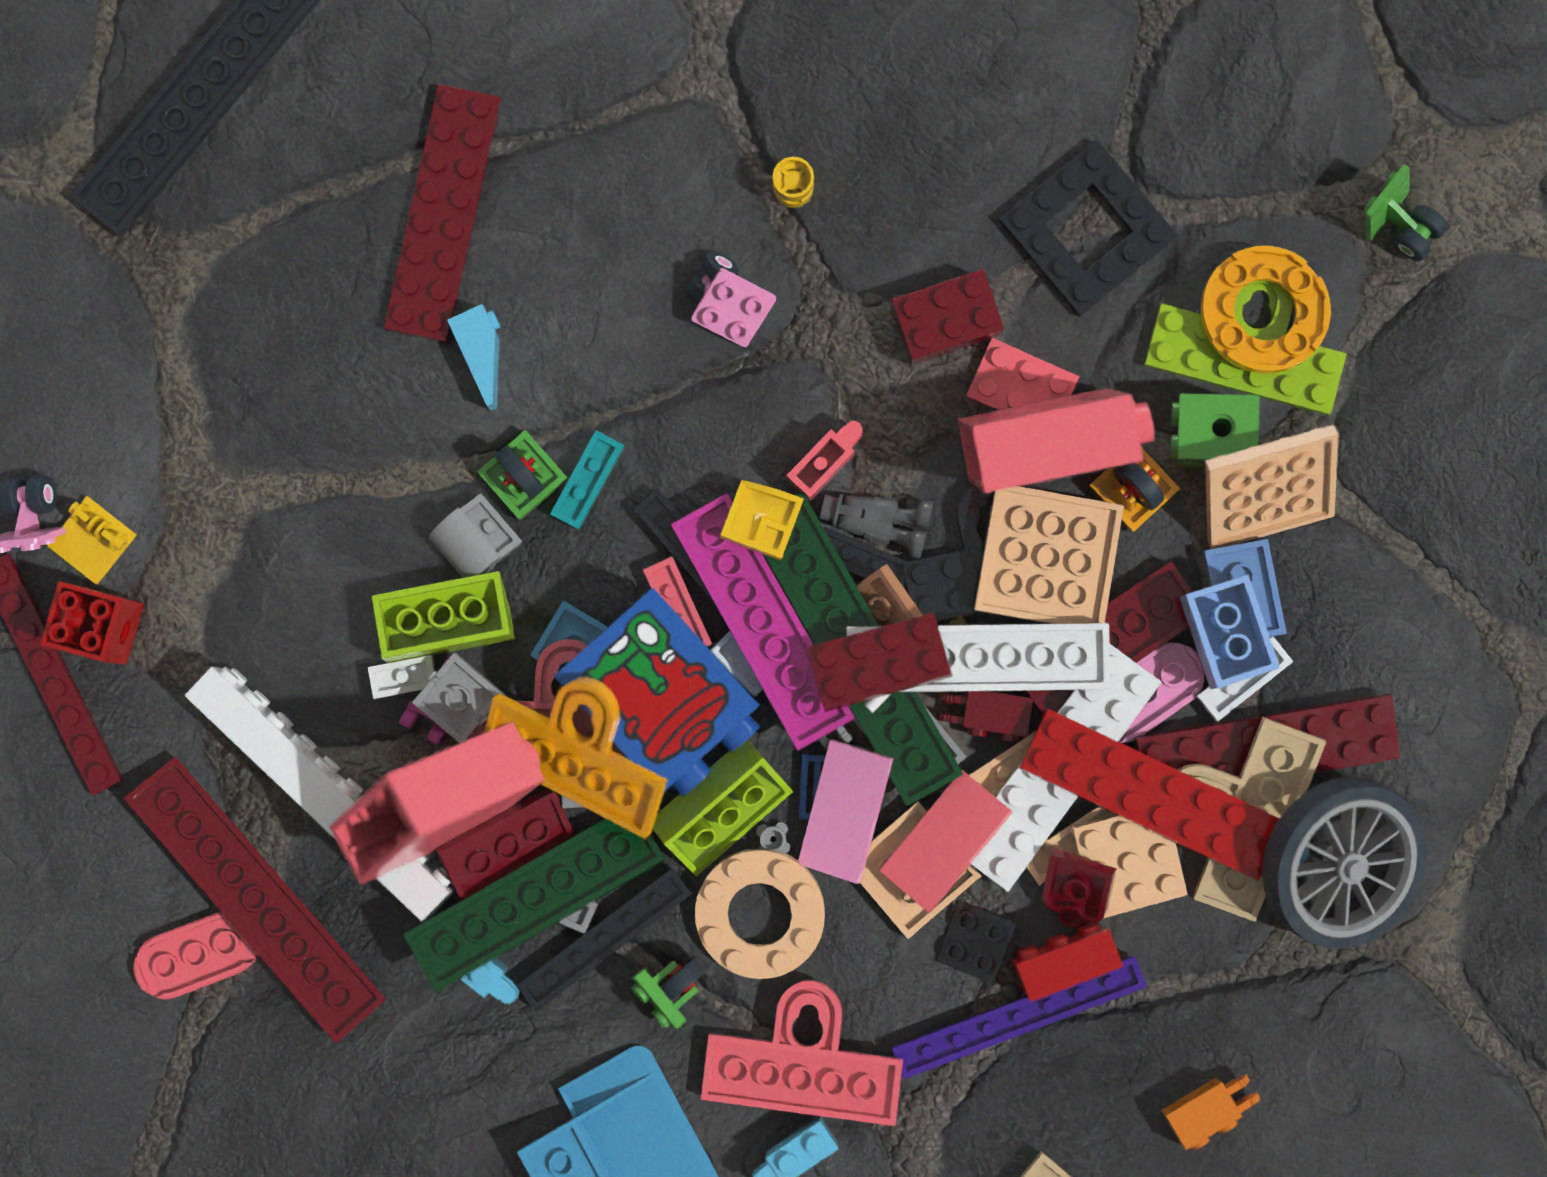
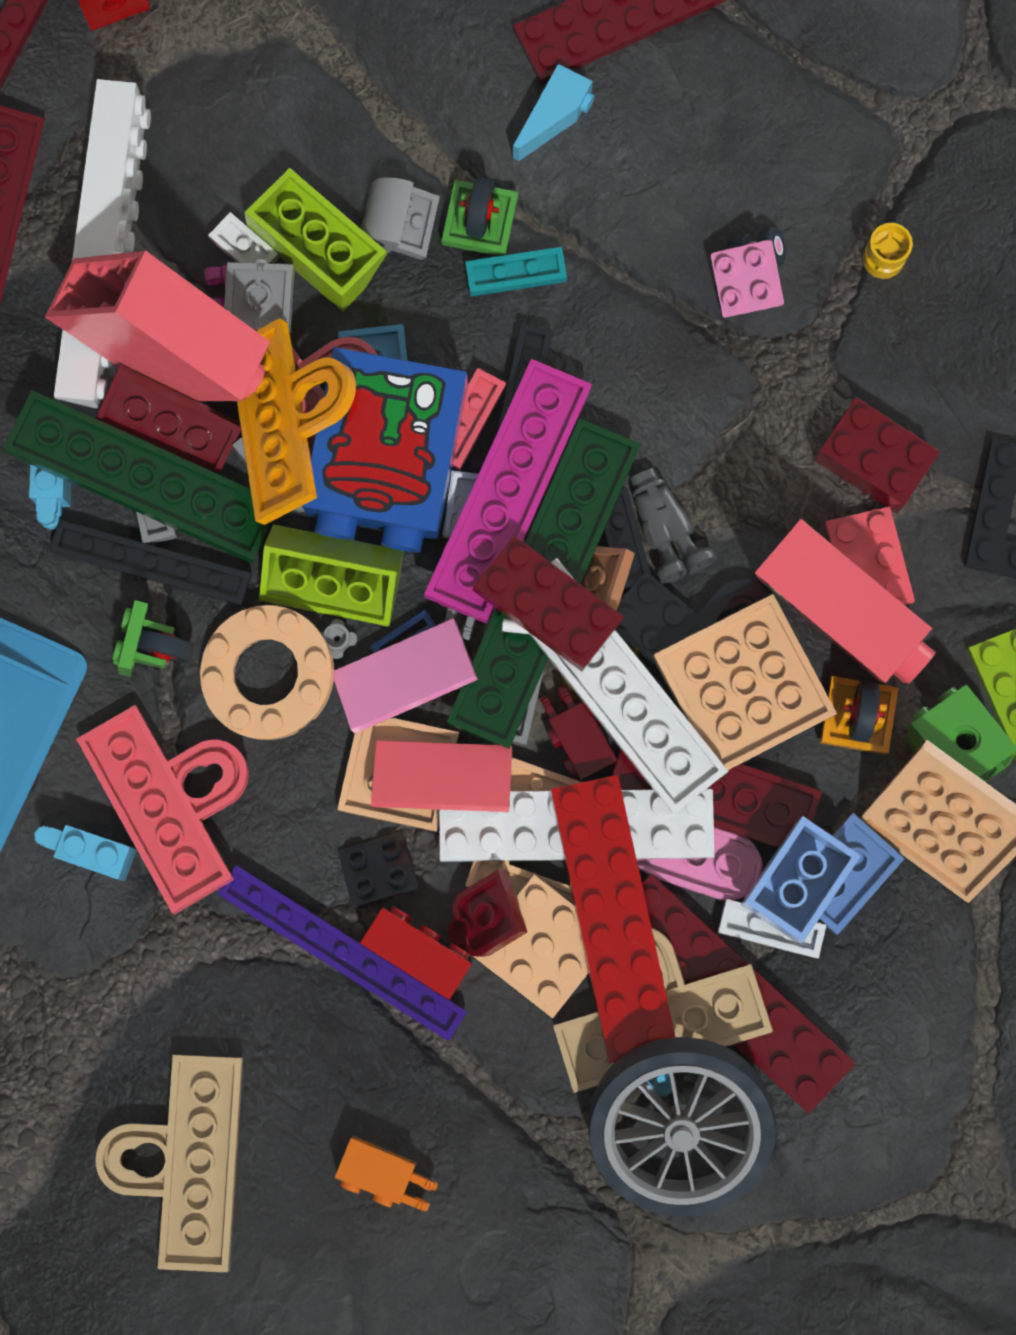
camera: 45 degrees right, 5 degrees down
(761, 519) = (592, 425): yellow plate -> none
(825, 460) = (681, 444): coral hinge -> none

